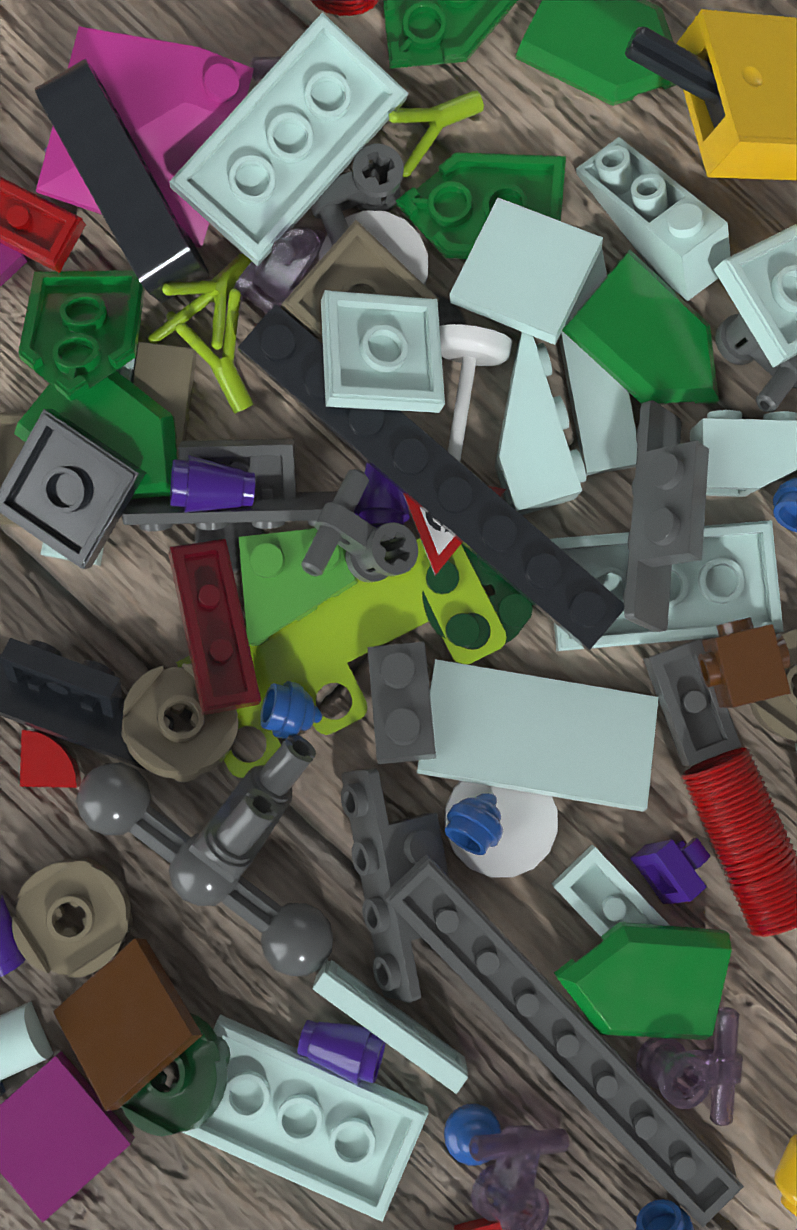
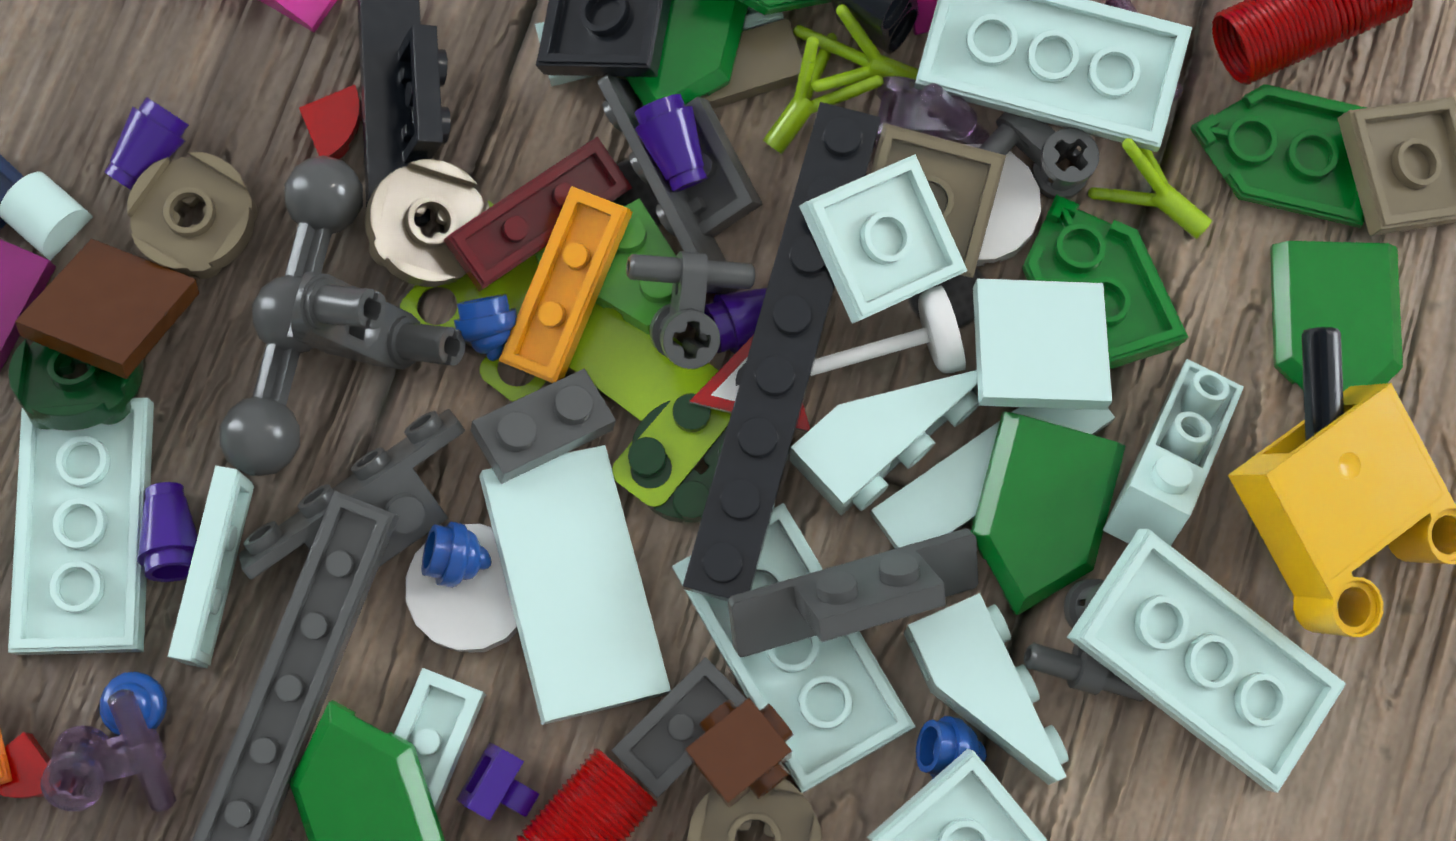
camera: 70 degrees right, 10 degrees down
(290, 631) = (566, 285): none -> light orange tile

